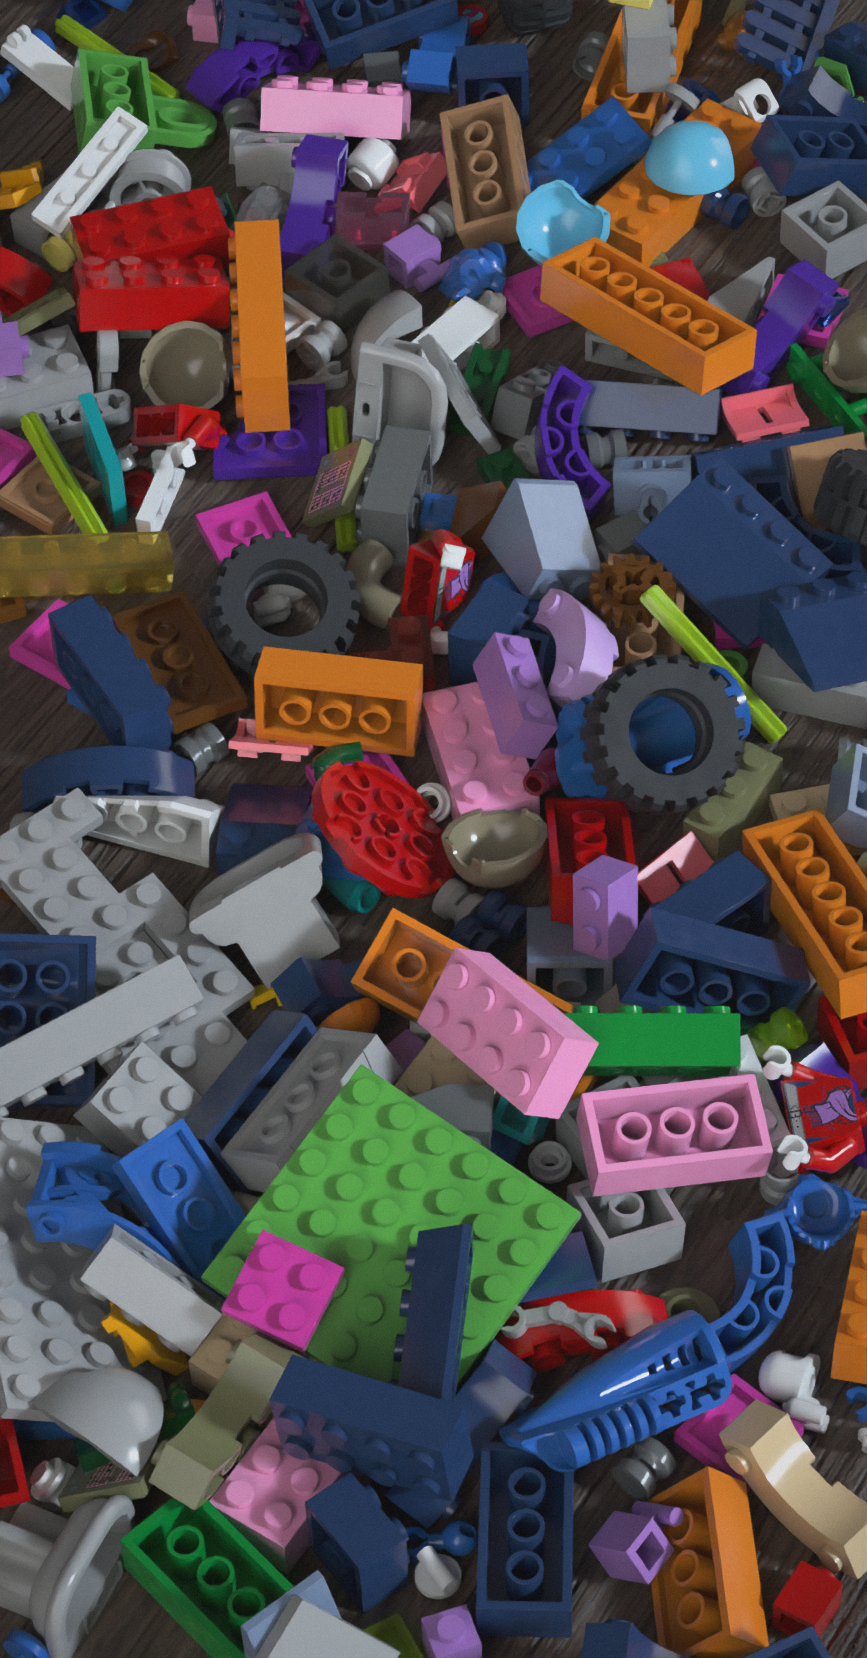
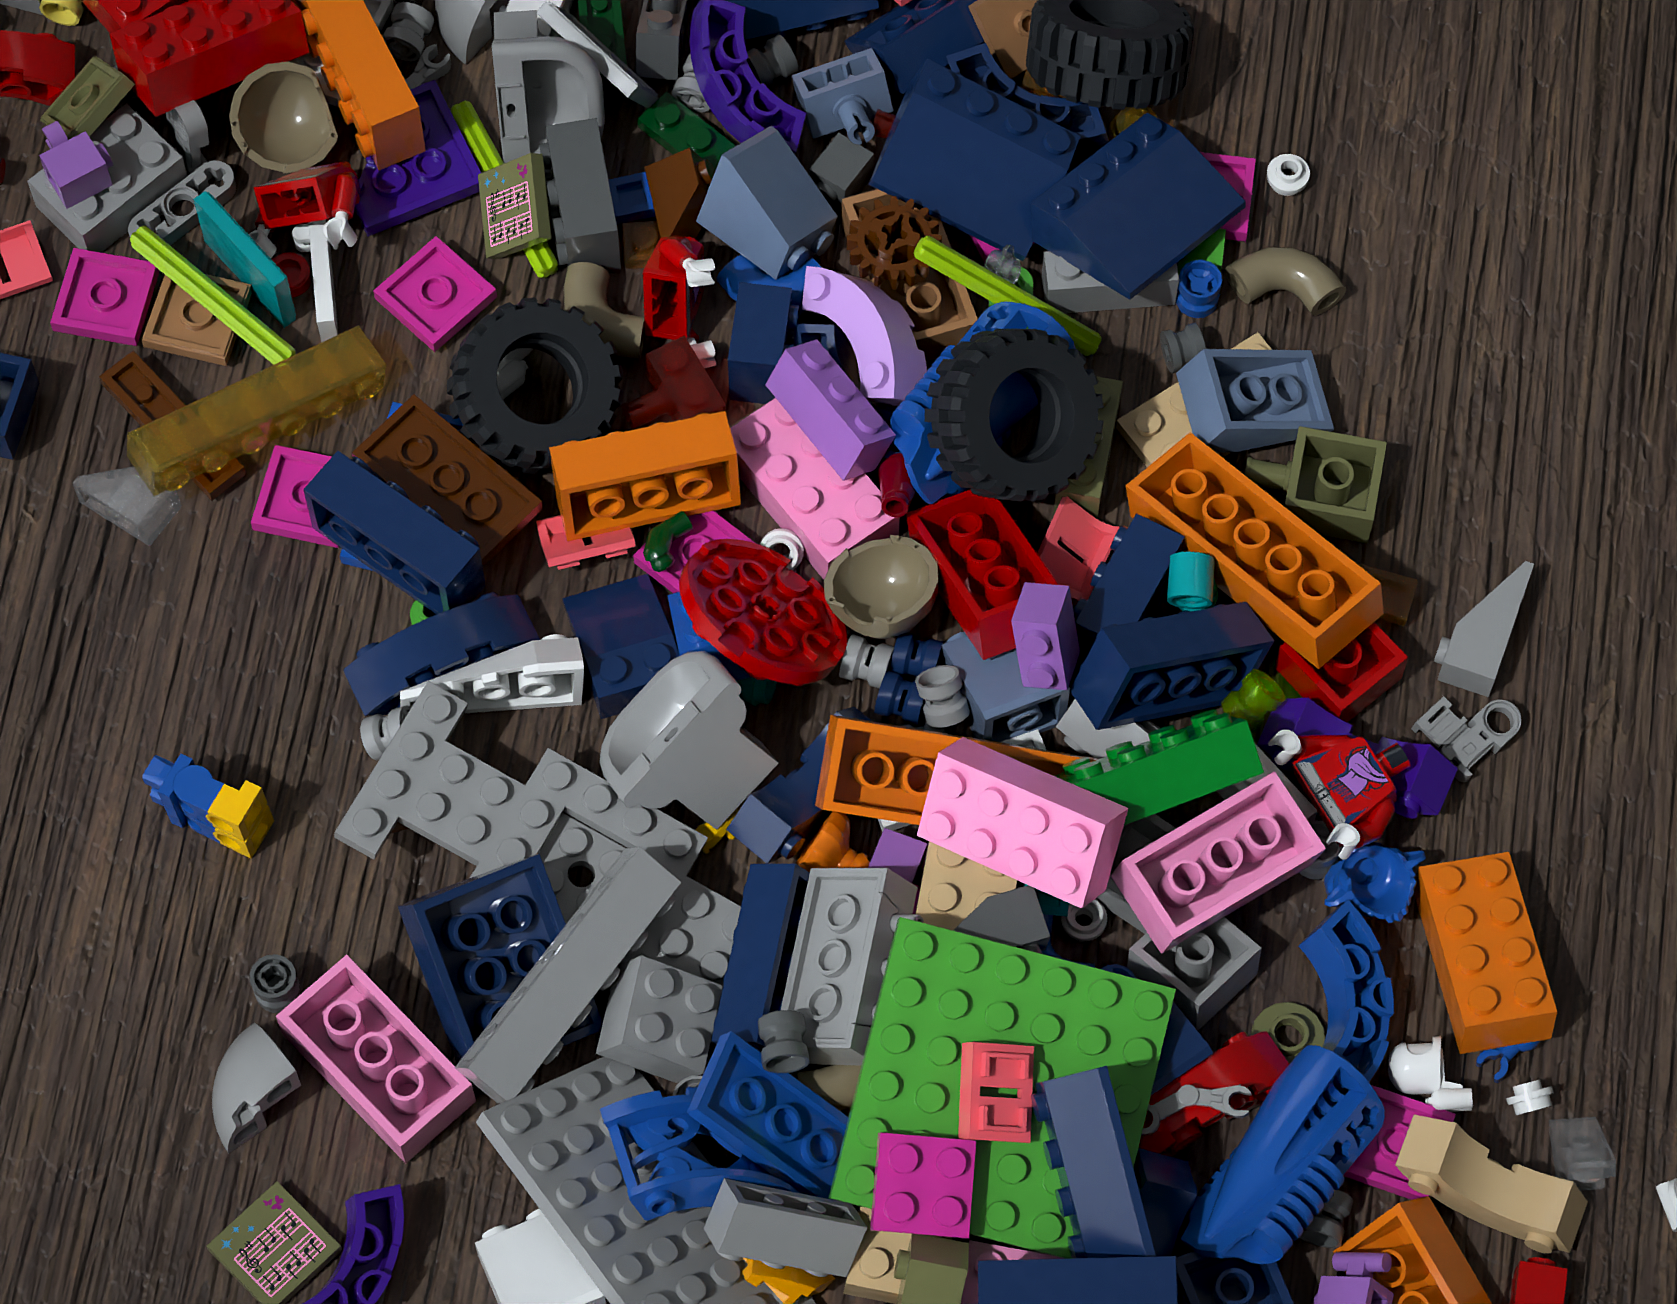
camera: 25 degrees left, 15 degrees up
(203, 747) = (515, 571): dark grey wheel -> none
(223, 1144) = (783, 1039): none -> dark grey wheel
(372, 1256) = (996, 1117): none -> coral piece
(506, 940) = (941, 691): none -> light grey wheel
(725, 642) = (1004, 264): none -> clear plate
(761, 913) = (1192, 581): none -> teal piece

